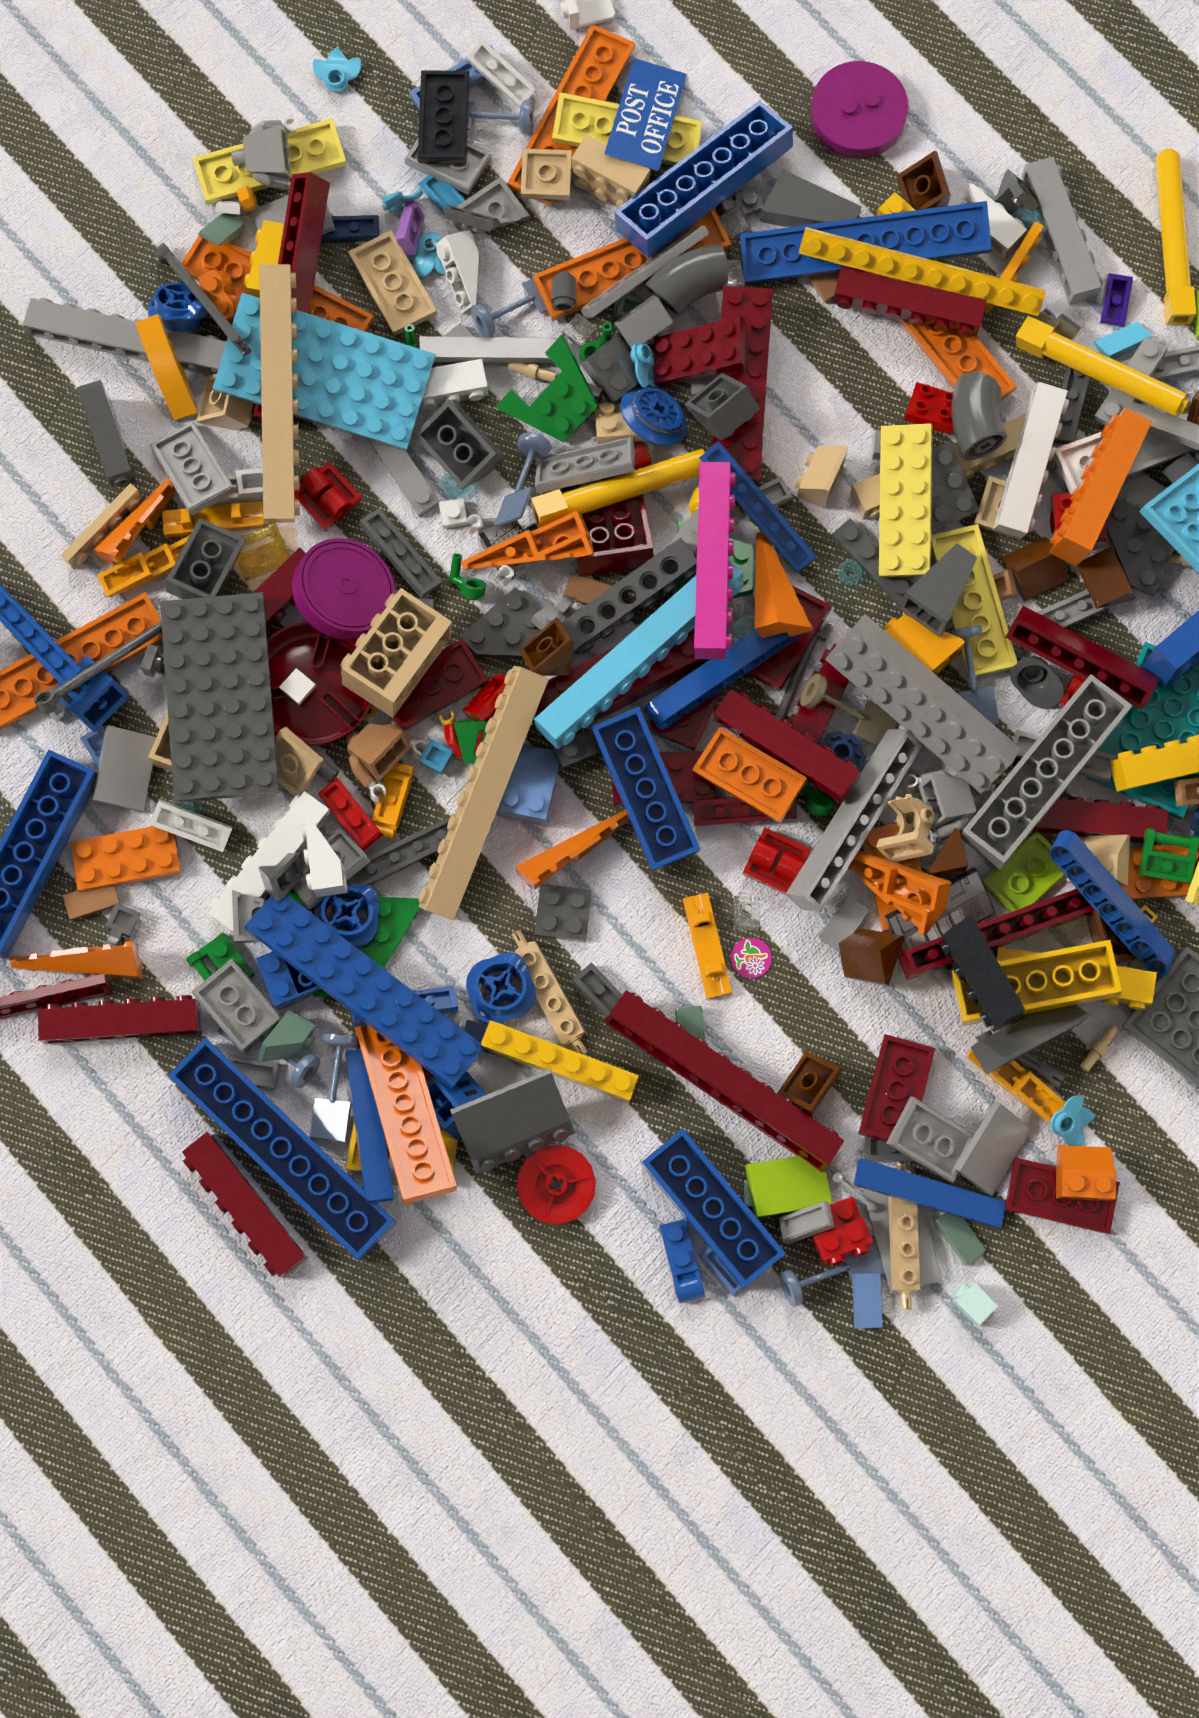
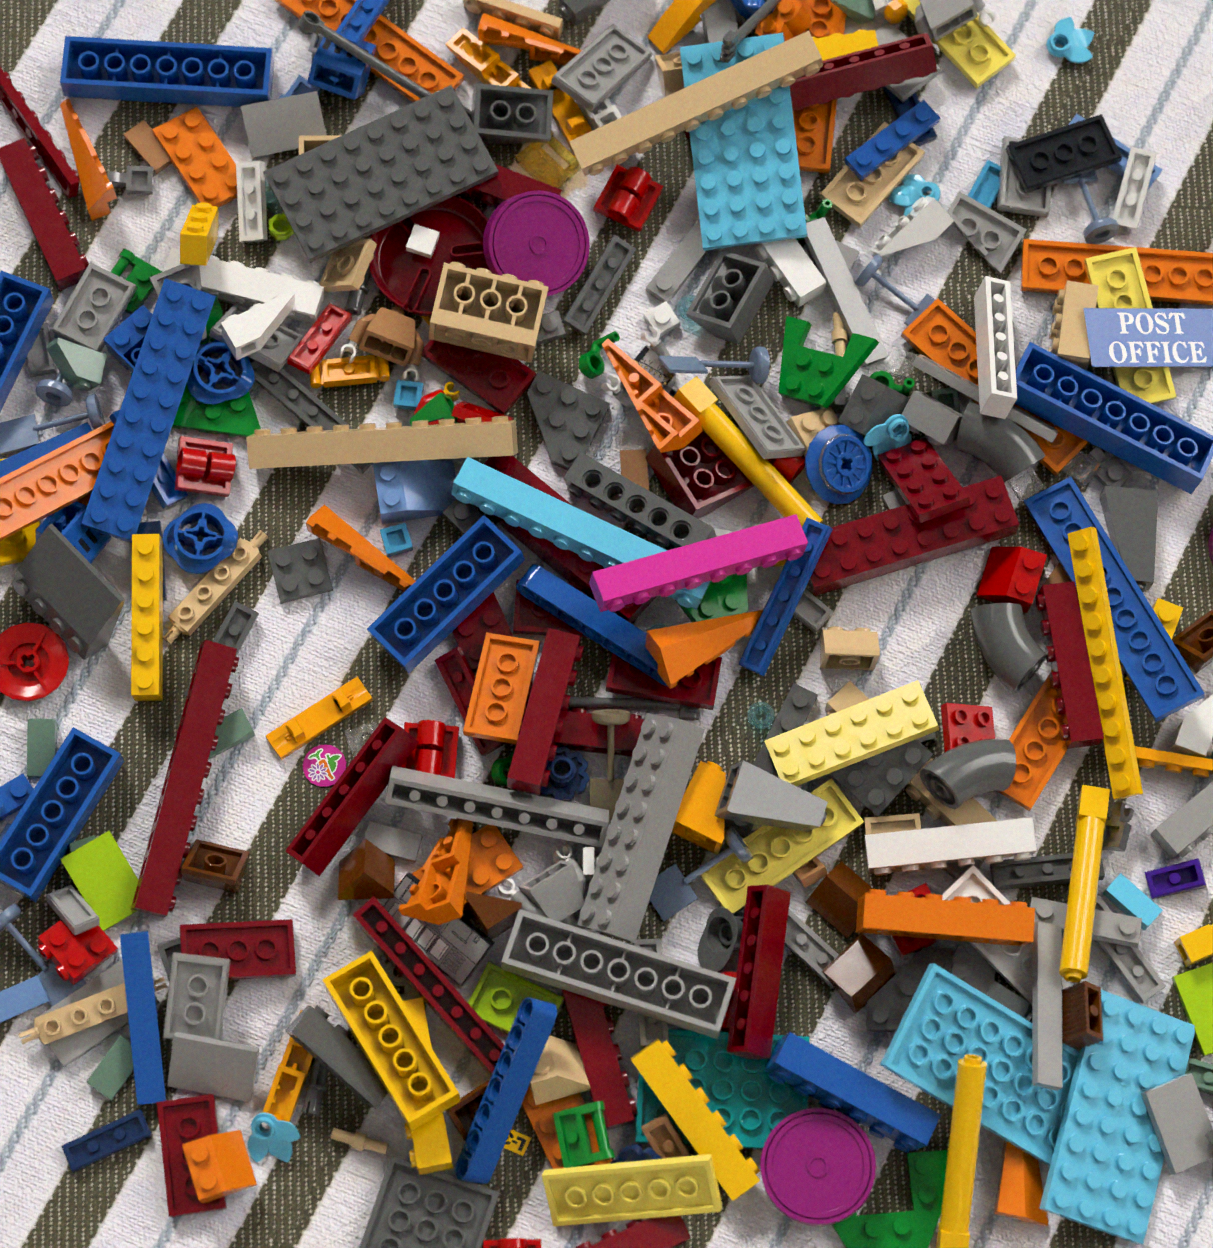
camera: 65 degrees right, 5 degrees down
(153, 662) = (393, 101): flat silver plate -> none
(209, 881) = (199, 234): none -> yellow brick
(224, 809) = (279, 227): none -> lime tile
(281, 877) = (228, 296): dark grey slope -> none
(370, 251) = (892, 140): none -> blue plate
(395, 201) = (956, 144): medium azure plate -> none
(410, 227) = (934, 167): medium lavender plate -> none
(433, 959) = (204, 466): none -> red plate
(458, 216) = (964, 208): flat silver plate -> none
(546, 174) = (1045, 268): tan plate -> none
(549, 612) = (592, 446): light grey plate -> none
(549, 650) = (547, 450): reddish brown slope -> none
(563, 291) = (929, 330): dark grey brick -> none
(569, 817) = (396, 539): none -> dark azure plate
(606, 242) = (995, 348): none -> white brick
(641, 1200) = (40, 745): none -> sand green slope
(723, 406) = (868, 518): dark grey slope -> none
(797, 940) = (351, 796): none -> dark red brick
(808, 318) = (1012, 576): none -> red slope
(839, 1178) = (112, 968): light grey hinge -> none
(871, 345) = (1007, 643): none -> dark grey brick
(915, 825) = (503, 868): tan tile -> none
(928, 763) = (588, 862): none -> white plate
(974, 1303) = (51, 1104): light aqua brick -> none
(982, 975) = (372, 975): black slope -> none
(1020, 1266) = (106, 1140): none -> dark blue tile

